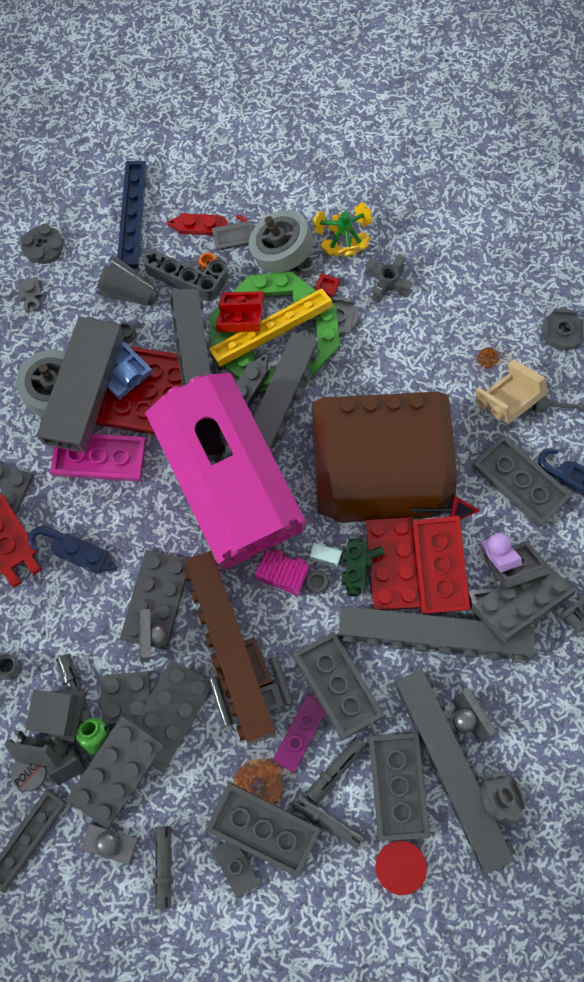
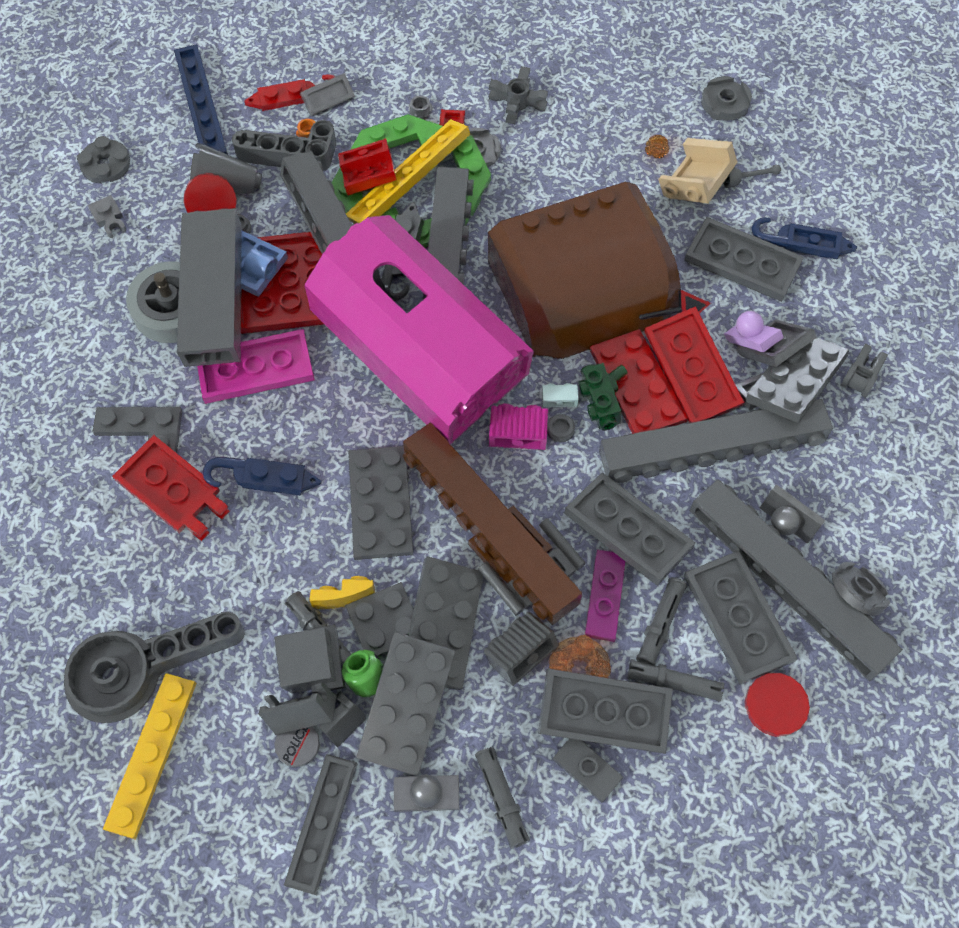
camera: 20 degrees left, 5 degrees down
(106, 666) = (352, 590): none -> yellow slope
(109, 303) = (209, 193): none -> red tile
(153, 635) = (390, 538): flat silver tile -> none
(218, 755) = (521, 648): none -> dark grey brick
(281, 241) = (385, 85): wheel -> none
(343, 225) = (448, 53): yellow plant -> none

